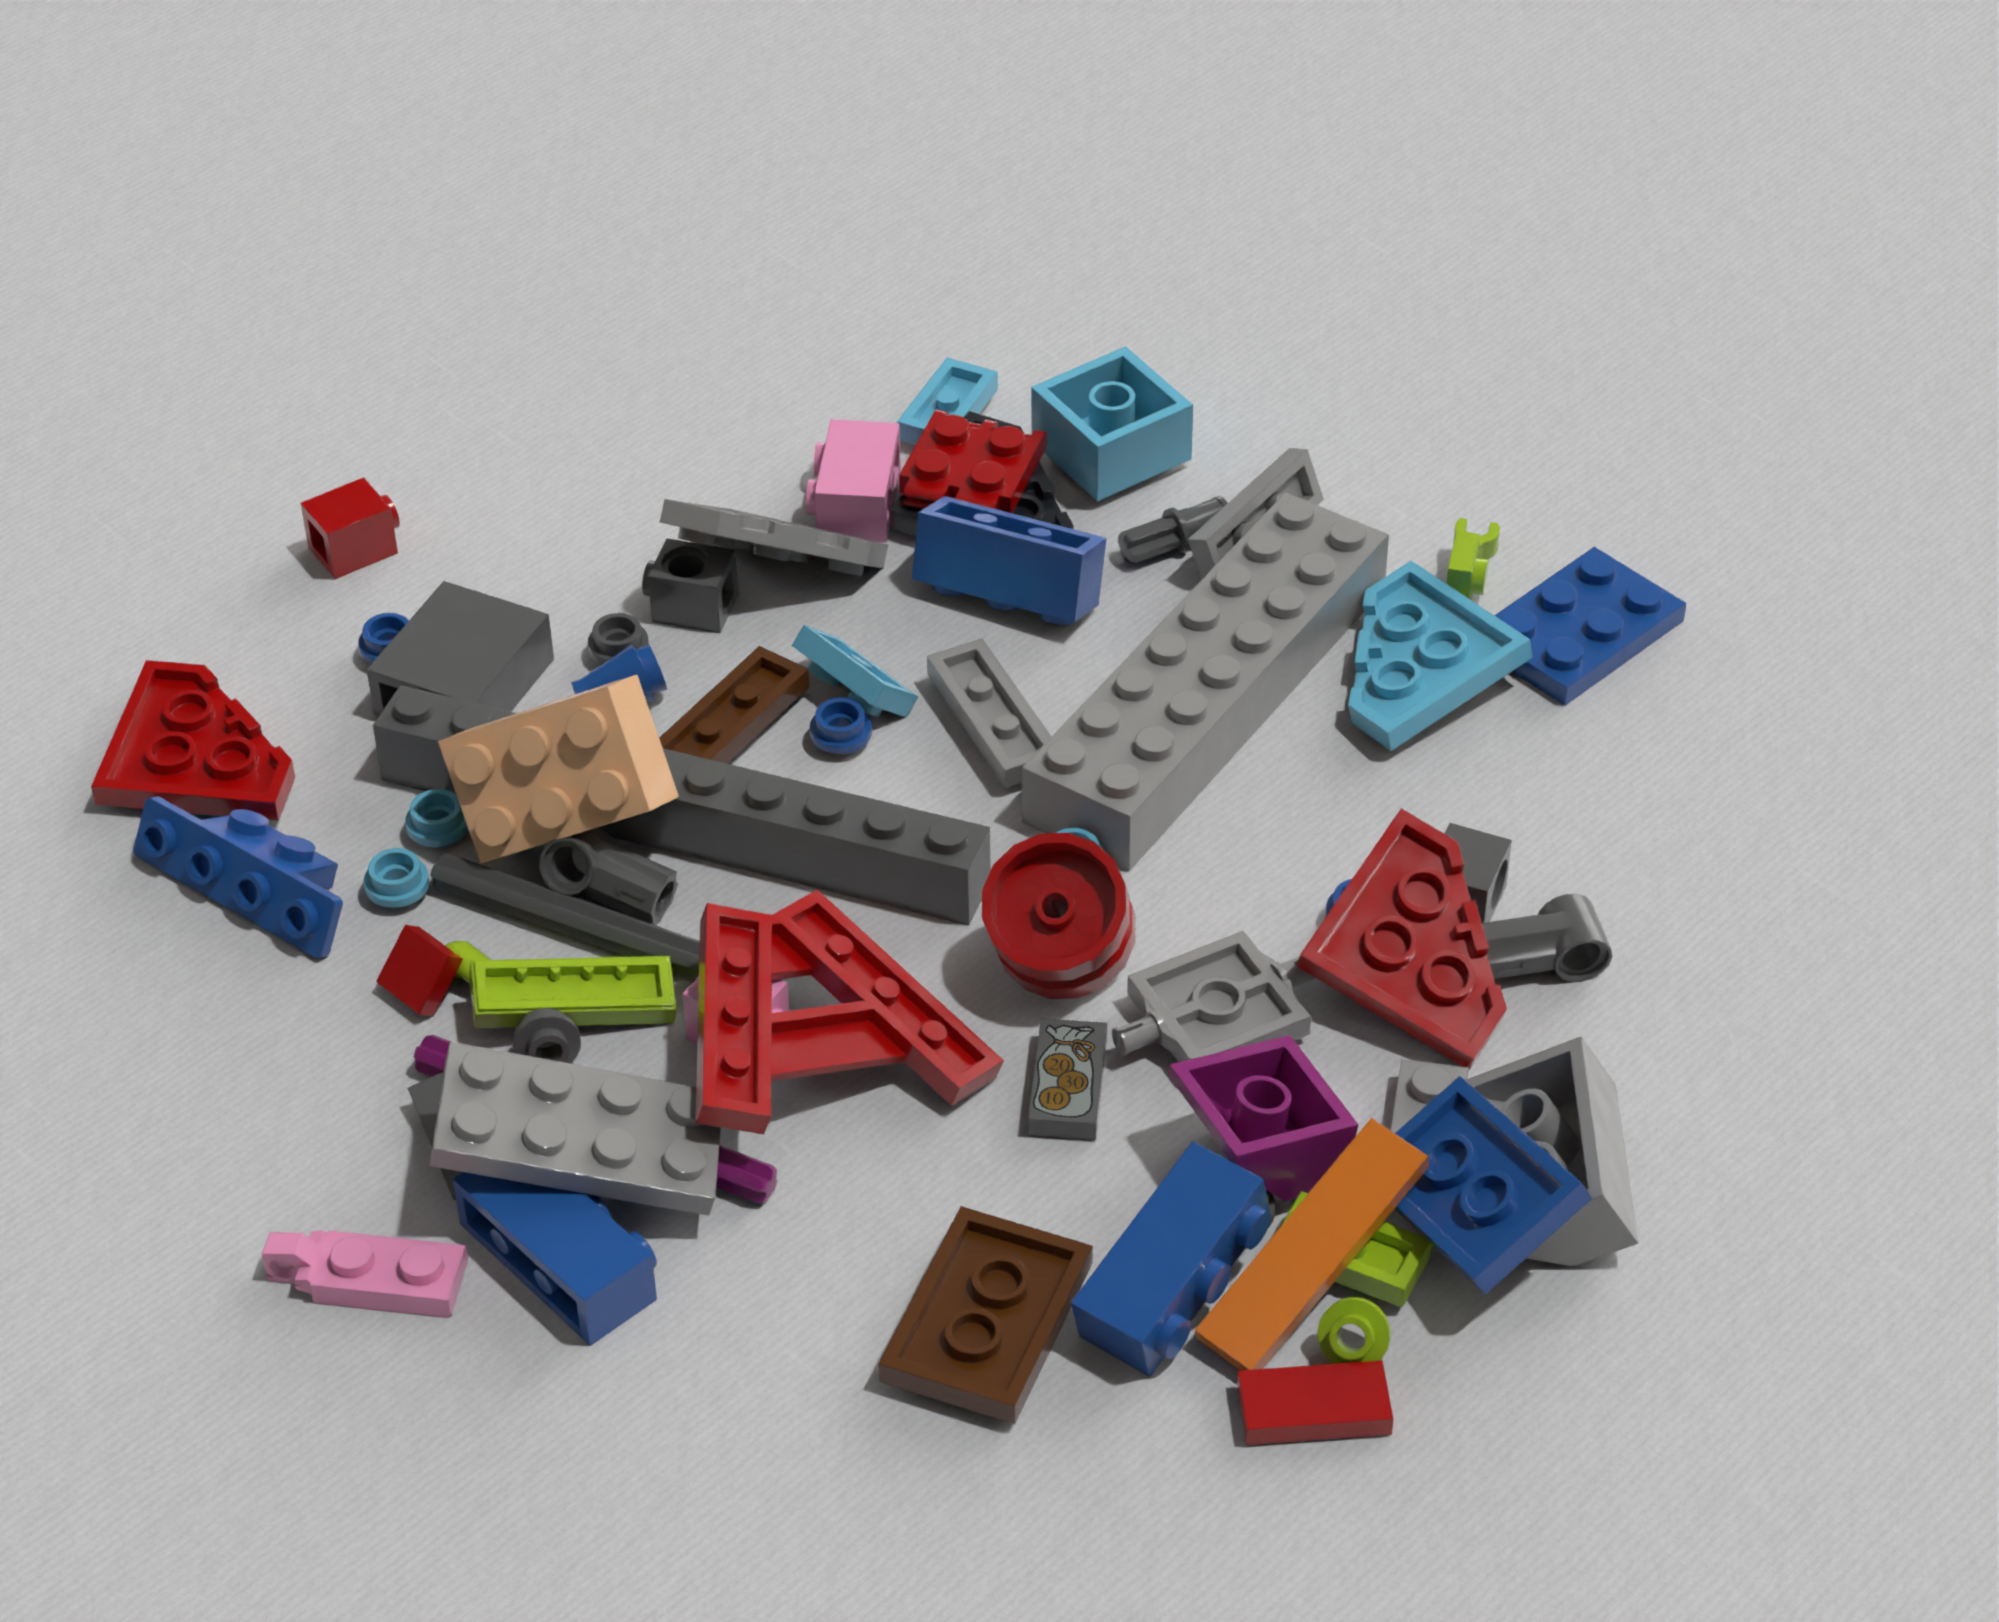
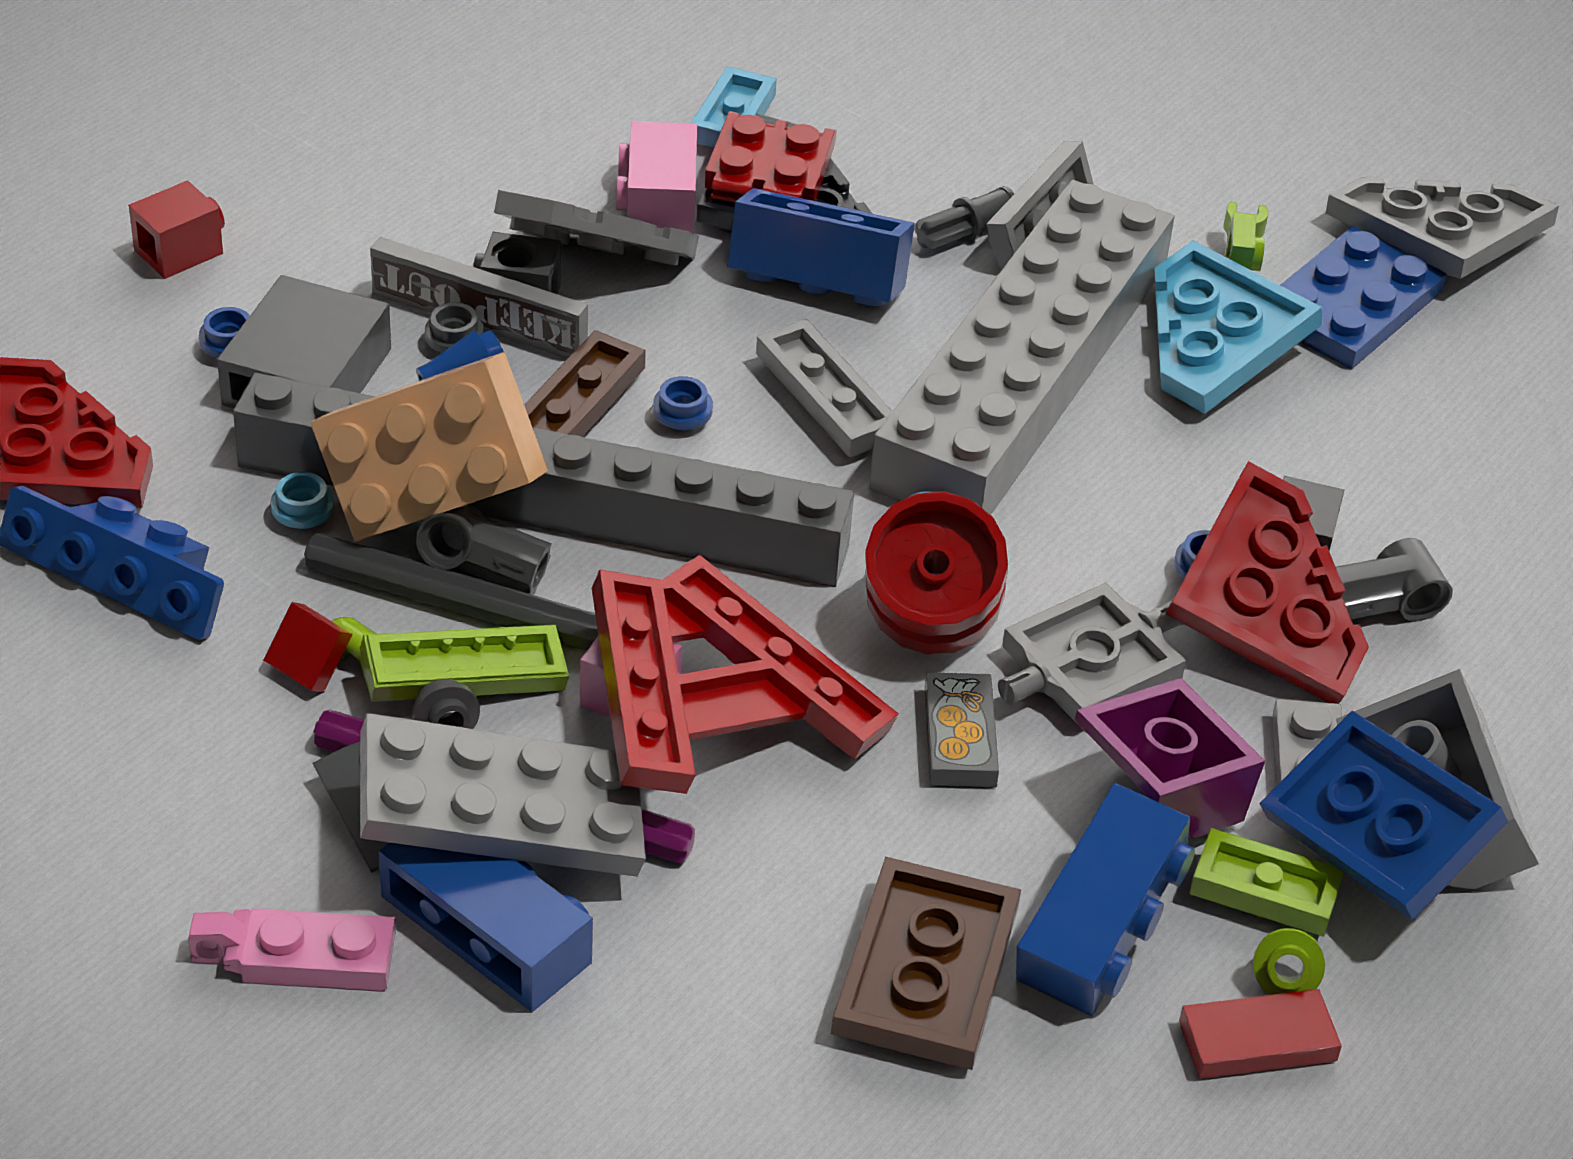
camera: 10 degrees left, 0 degrees up
(396, 878) = (269, 559): medium azure plate -> none
(665, 613) = (500, 303): none -> tile
(838, 662) = (669, 343): medium azure plate -> none
(1112, 423) = (895, 121): medium azure brick -> none
(1312, 1247) = (1236, 883): orange tile -> none
(1695, 544) = (1440, 223): none -> light grey plate

